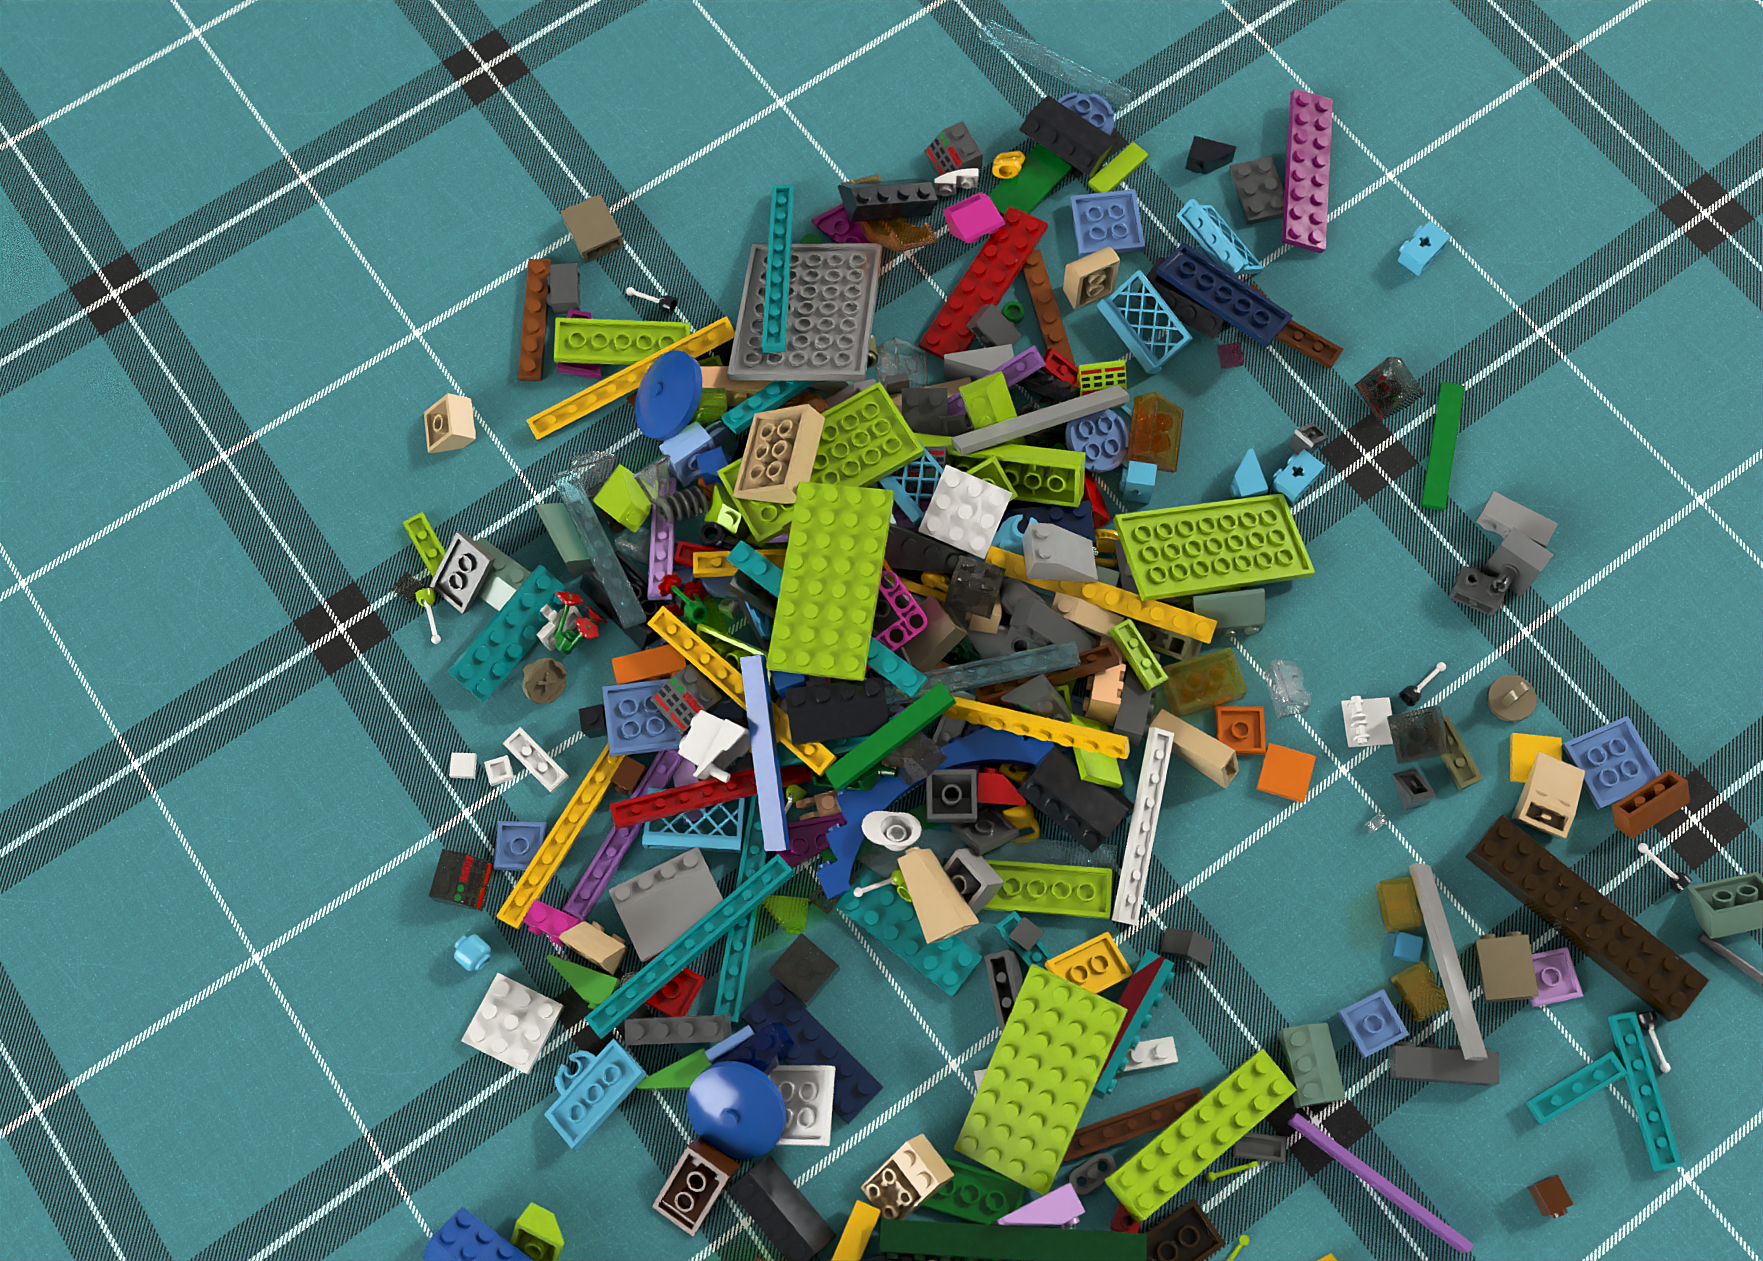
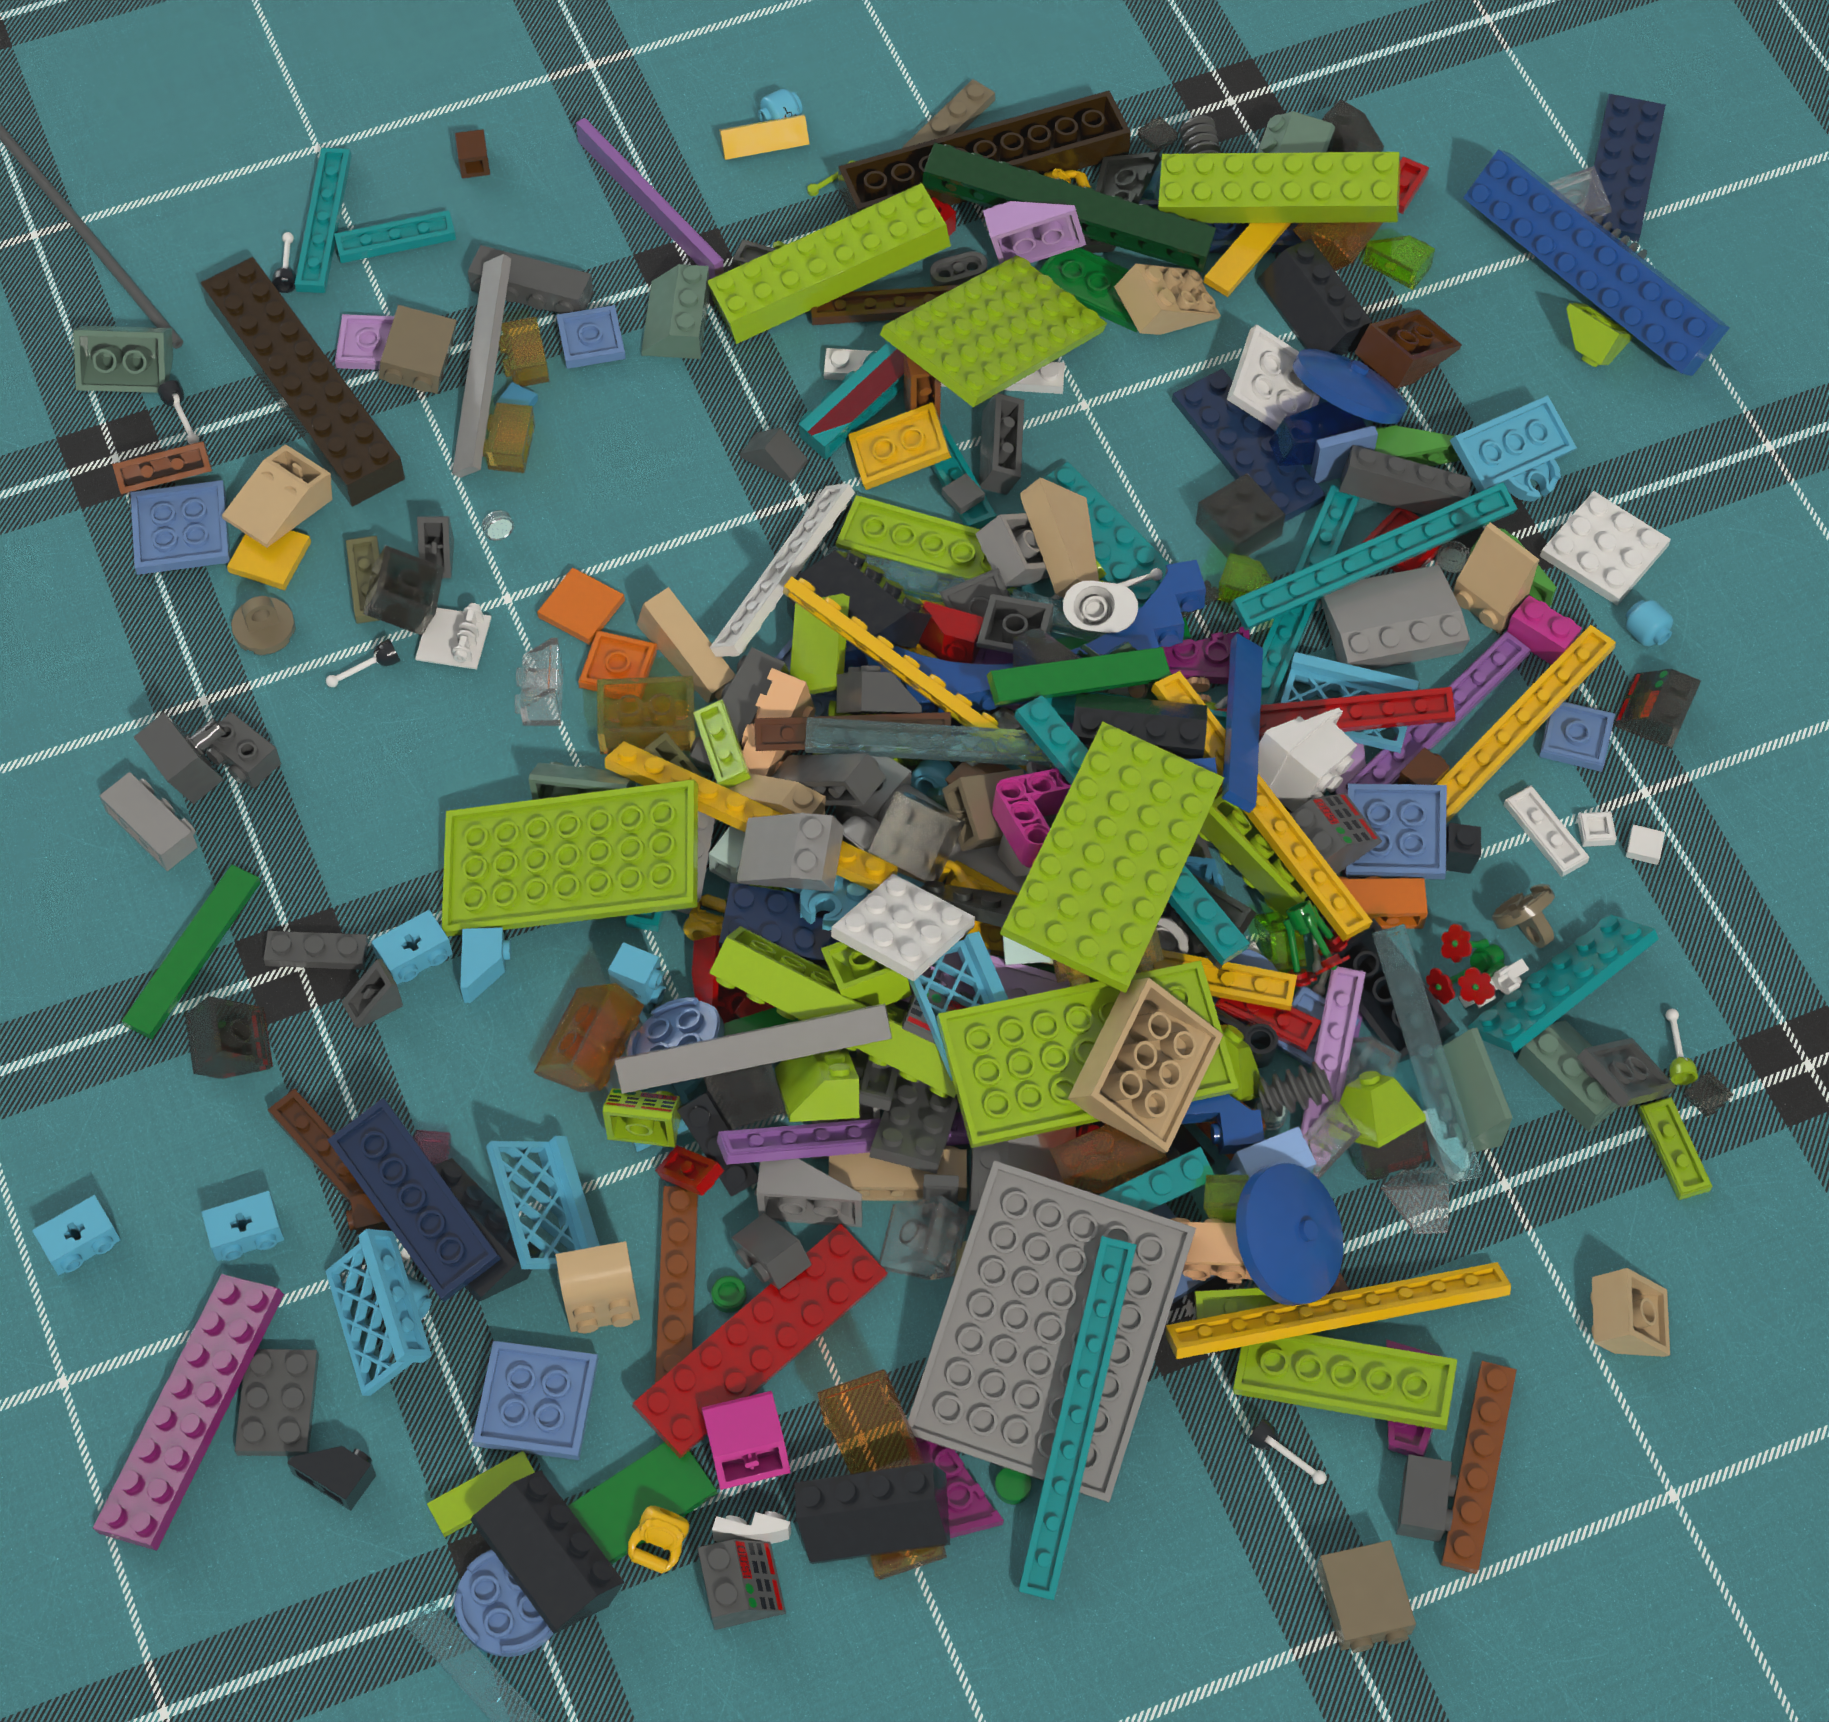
camera: 170 degrees left, 10 degrees down
(1325, 276) = (225, 1224): none -> medium azure brick
(1361, 466) = (316, 950): none -> dark grey plate

